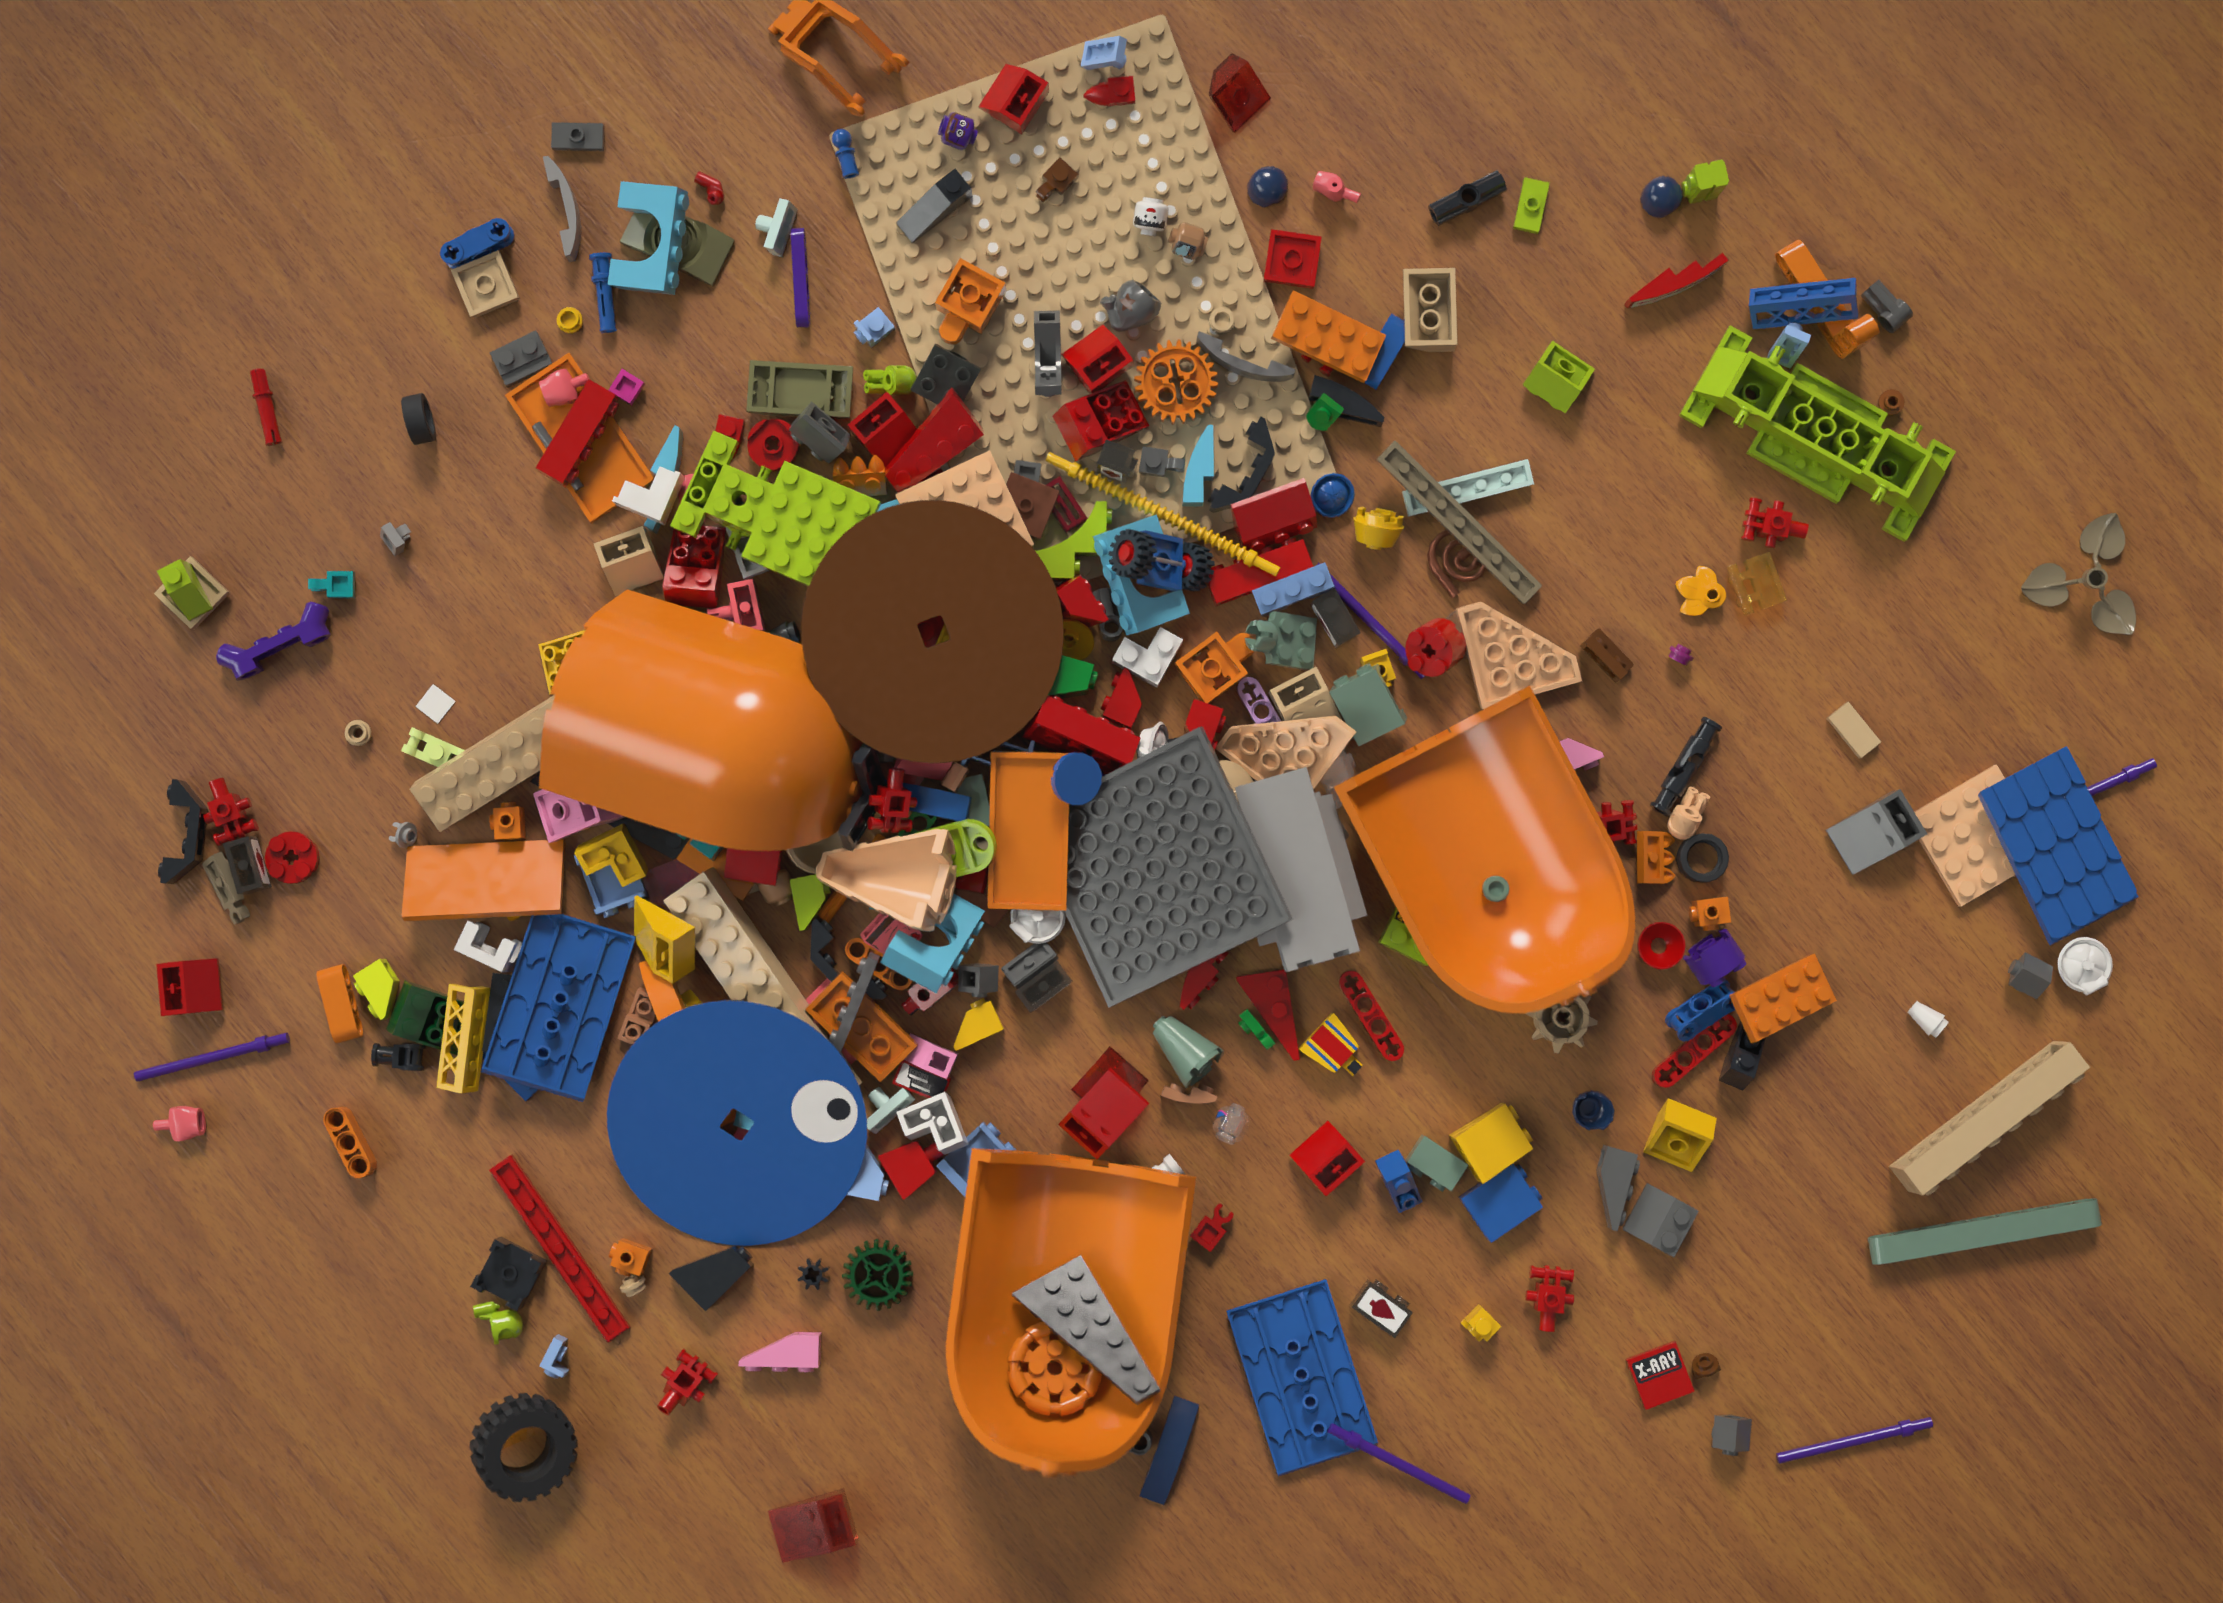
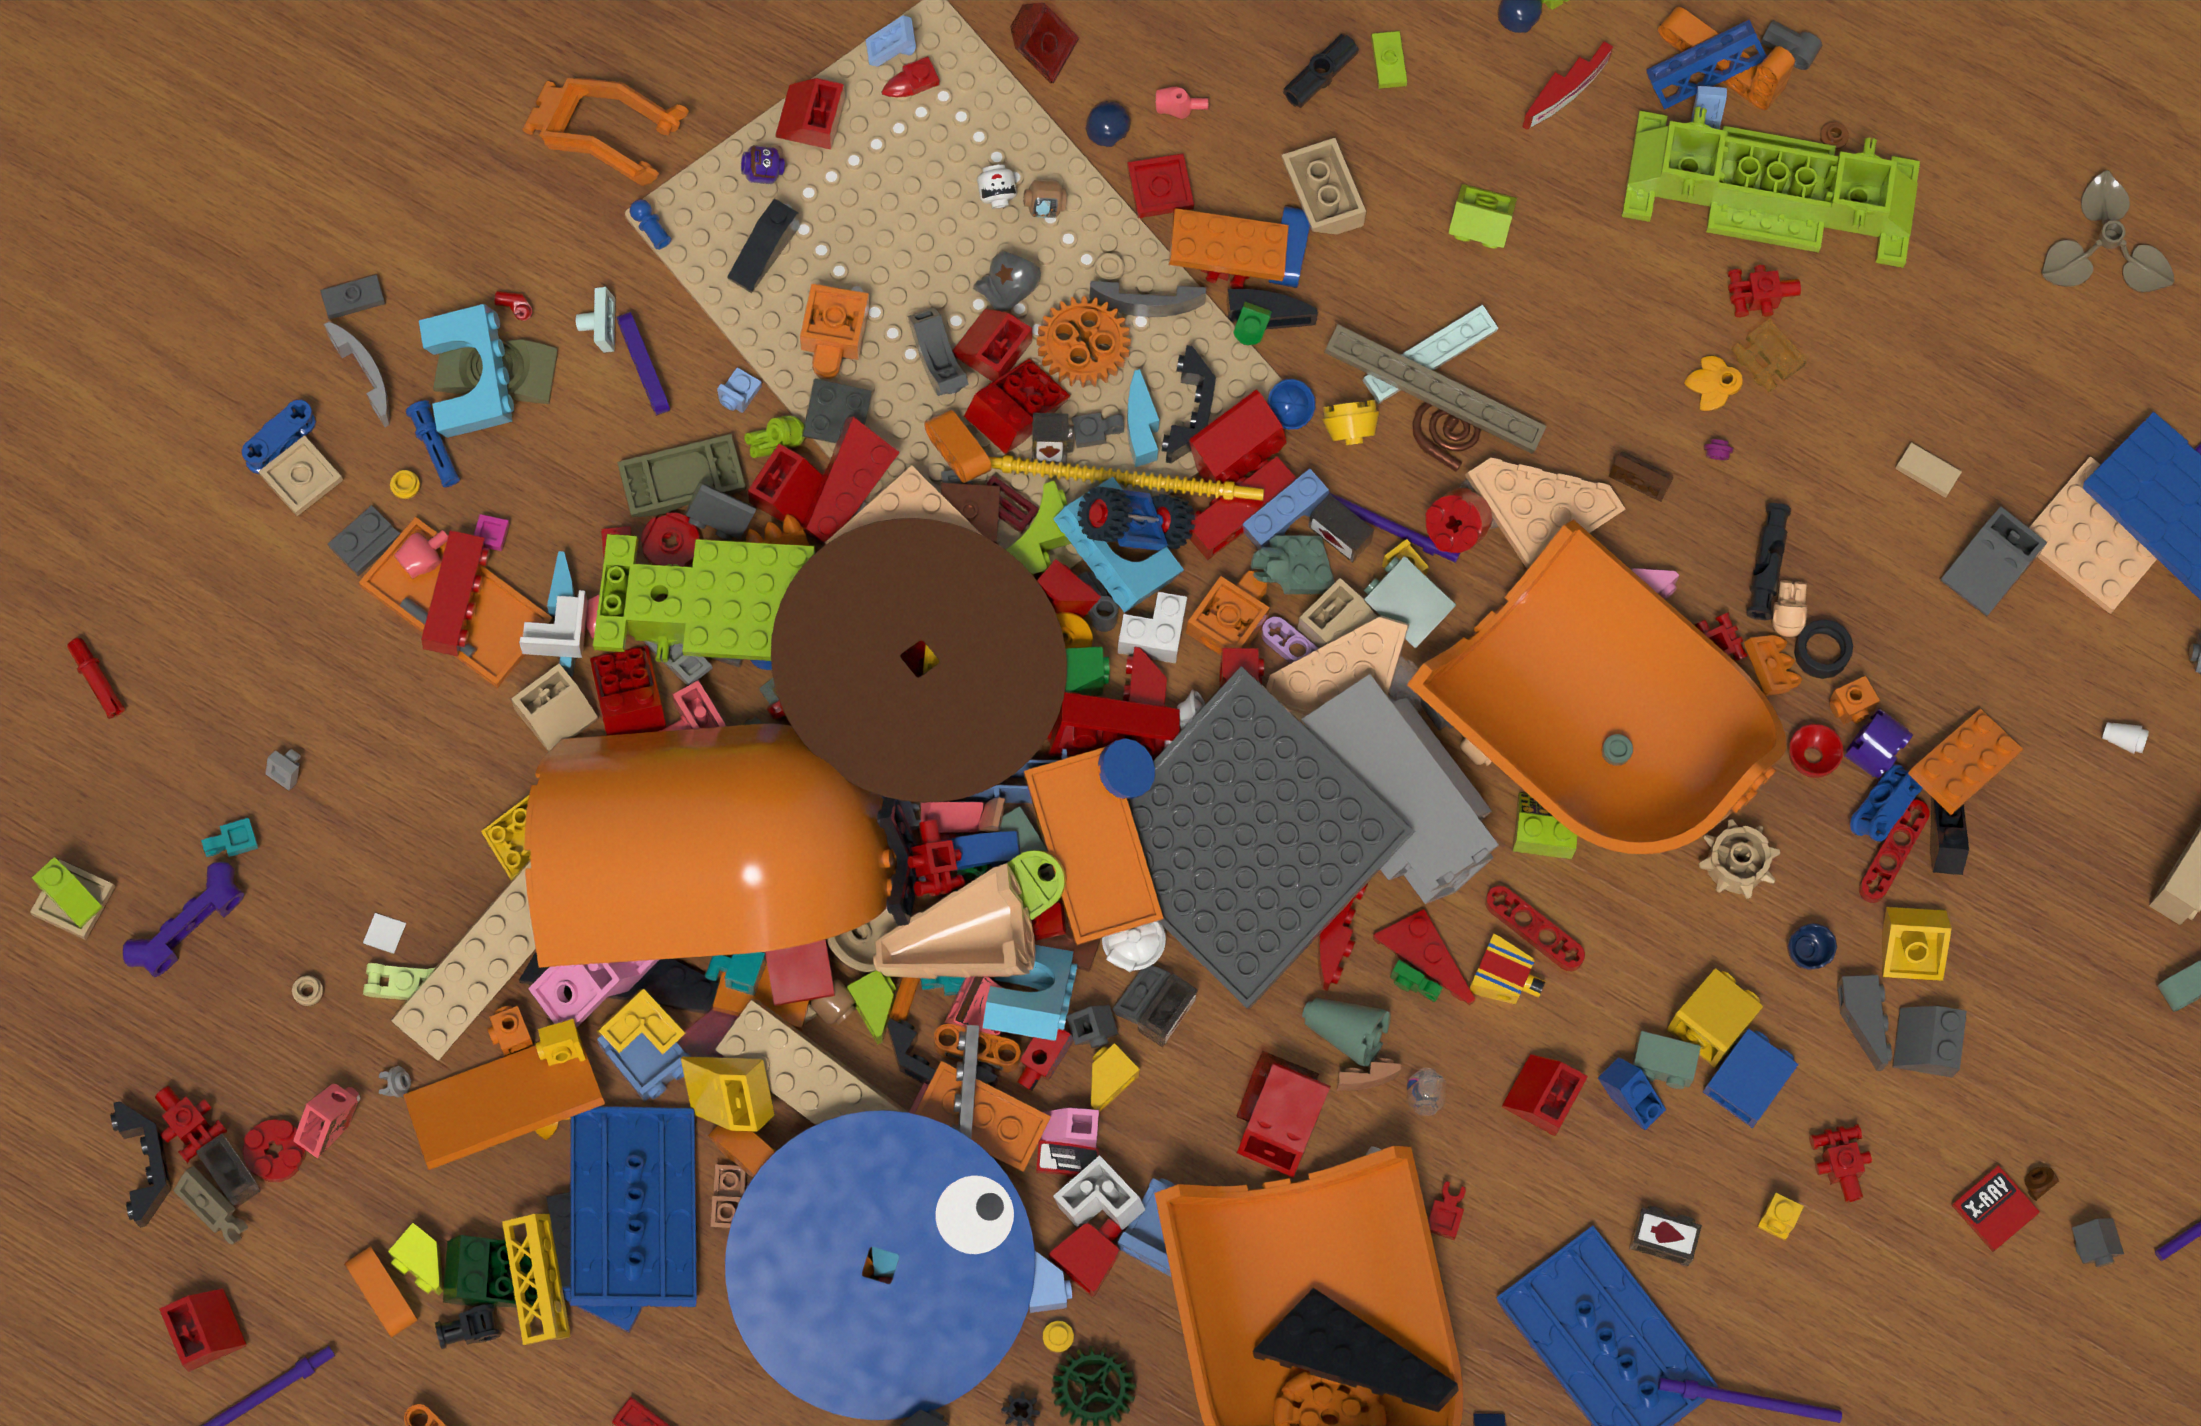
camera: 20 degrees left, 15 degrees down
(338, 848) = (335, 1108): none -> coral torso
(418, 419) = (273, 633): black tyre -> none
(472, 945) = (534, 1178): white panel -> none
(542, 850) = (560, 1043): none -> yellow brick
(864, 1222) = (1058, 1336): none -> yellow plate
(886, 1107) = (1040, 1201): light aqua tile -> none
(1036, 442) = (957, 446): none -> orange beam
(1058, 178) = (883, 180): reddish brown plate -> none

